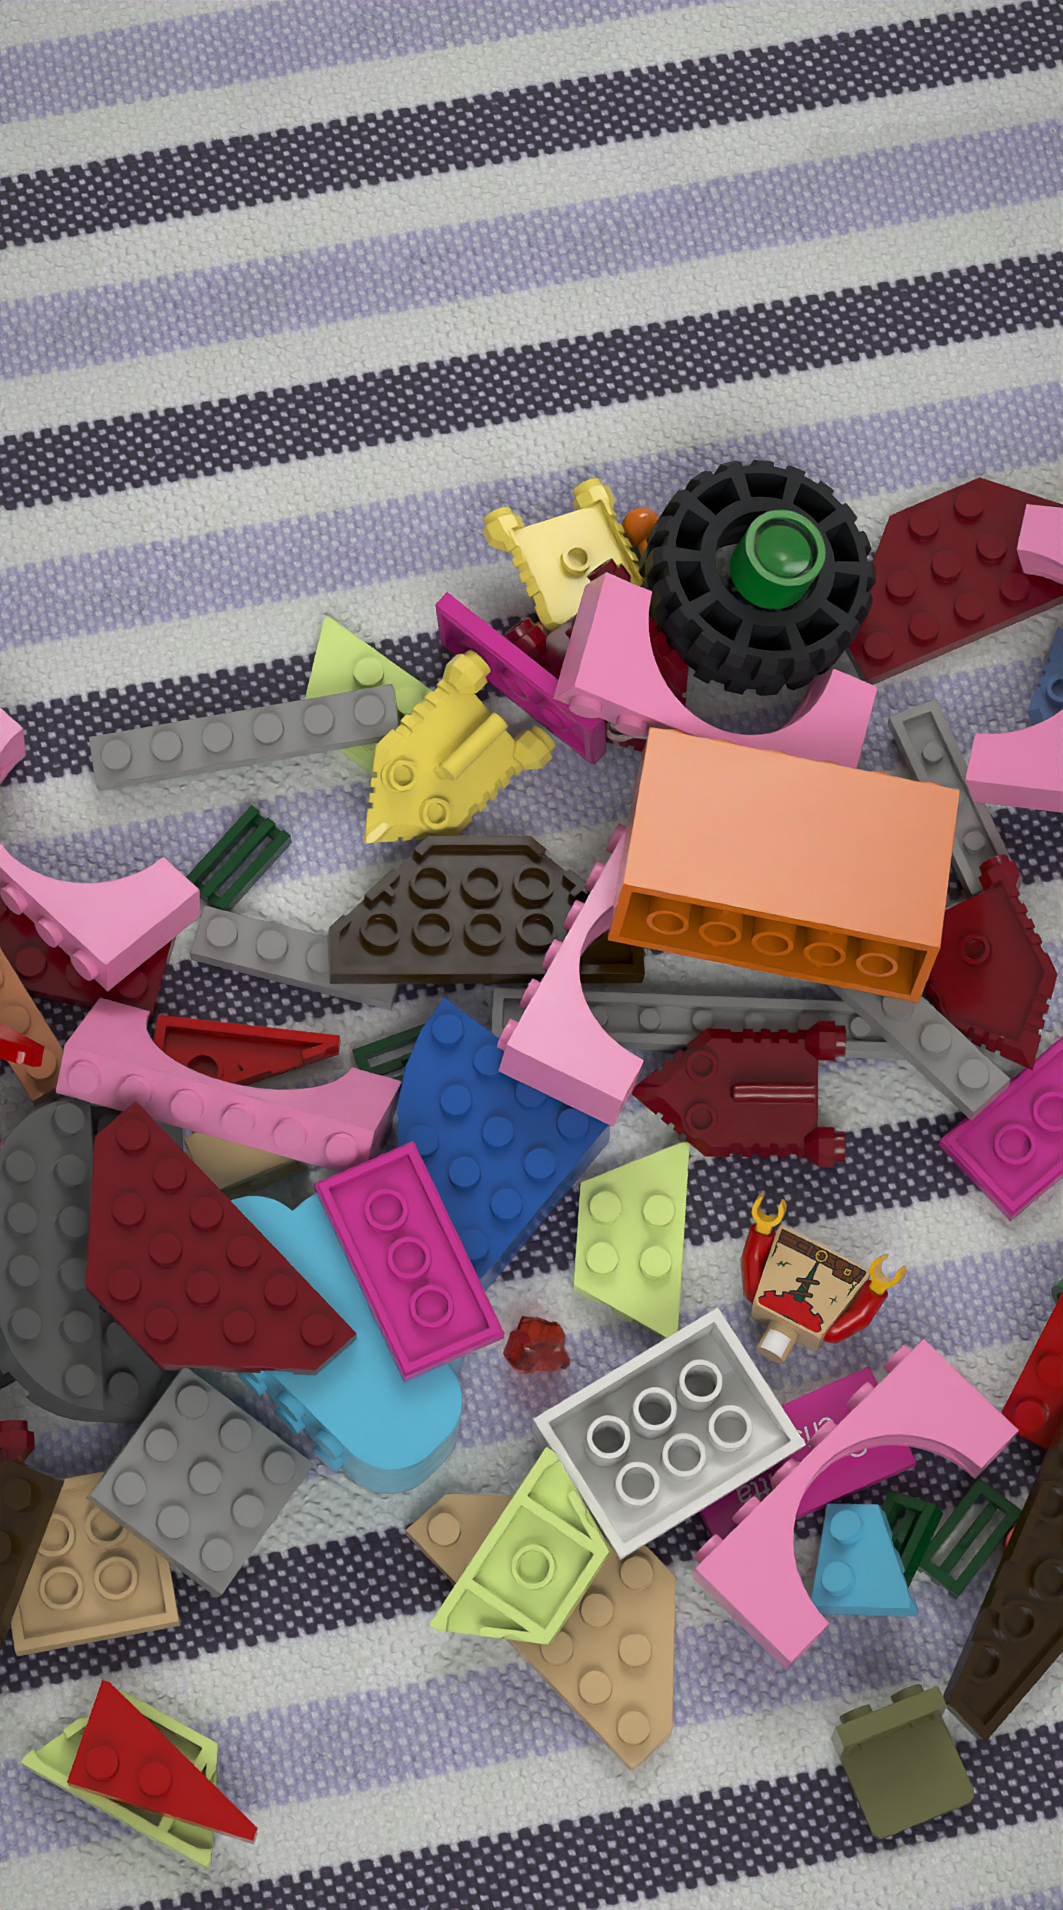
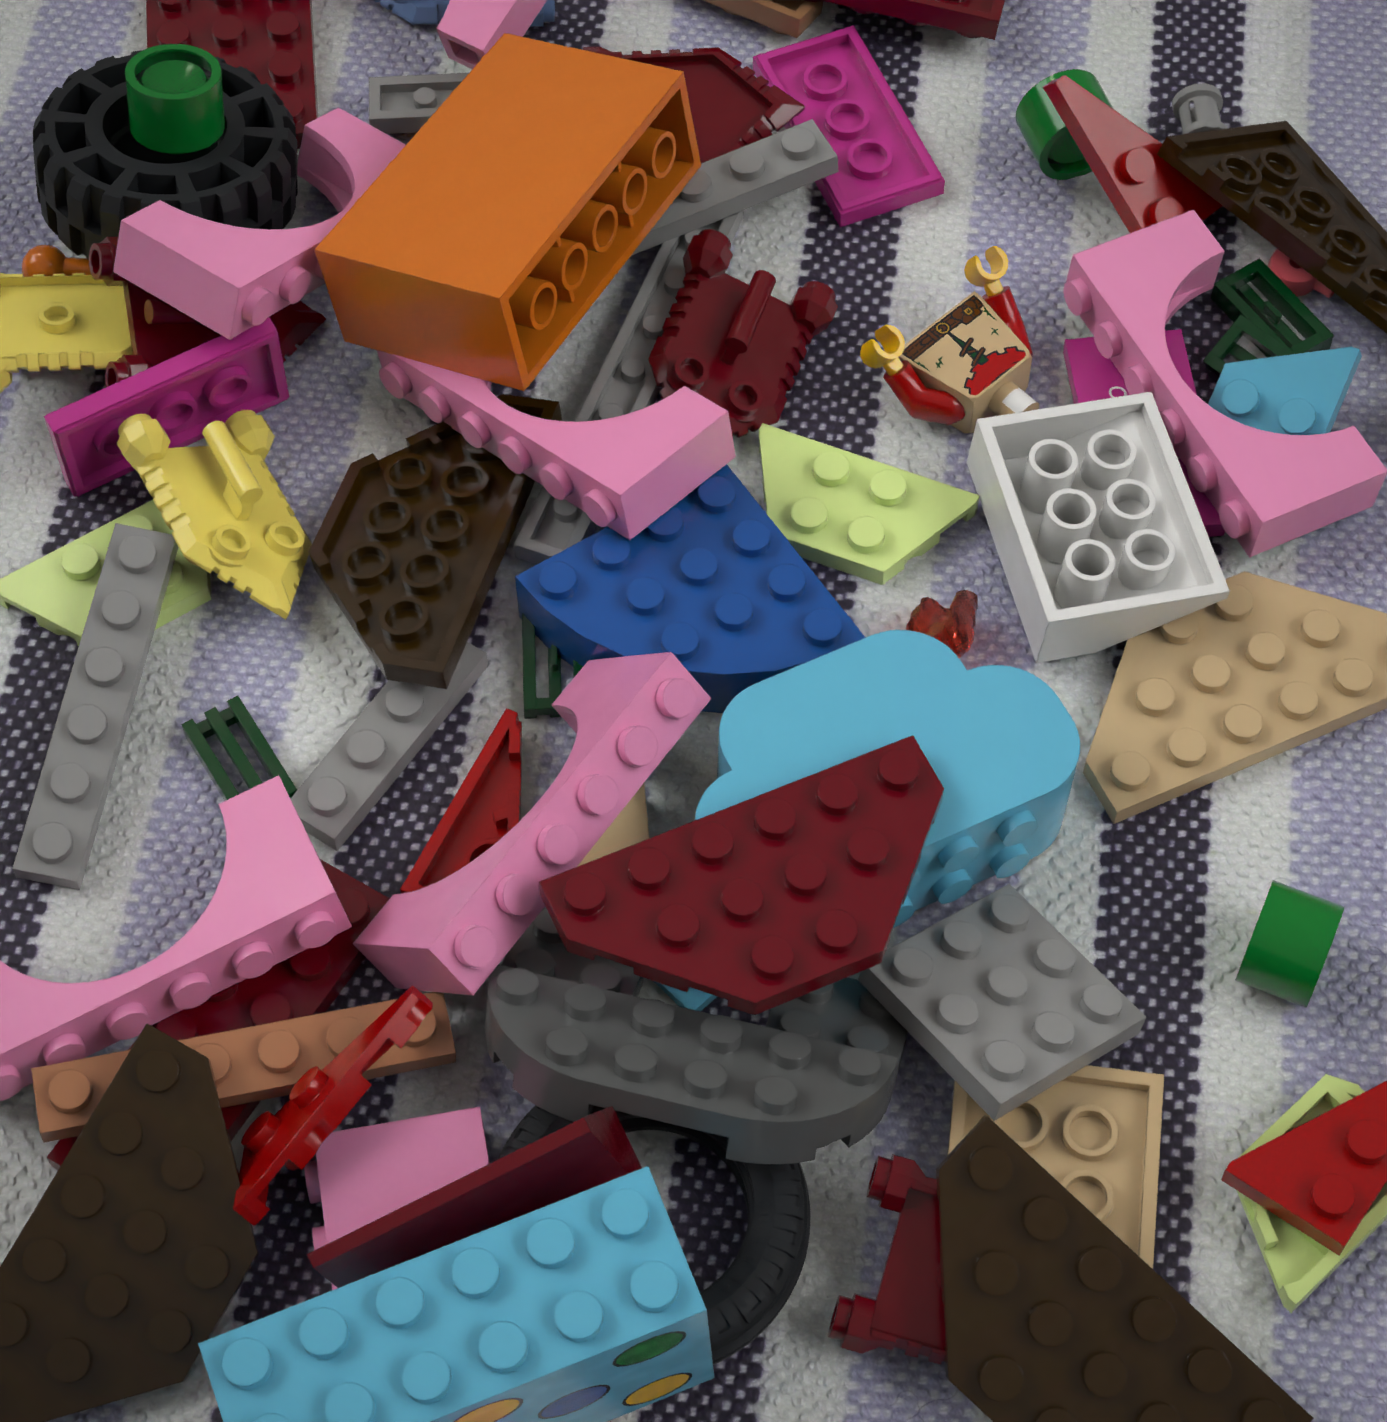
camera: 70 degrees left, 10 degrees down
(317, 1687) = (1290, 943): none -> green piece
(409, 1261) = (837, 667): dark pink tile -> none
(530, 1563) = (1209, 680): yellowish green wing -> none

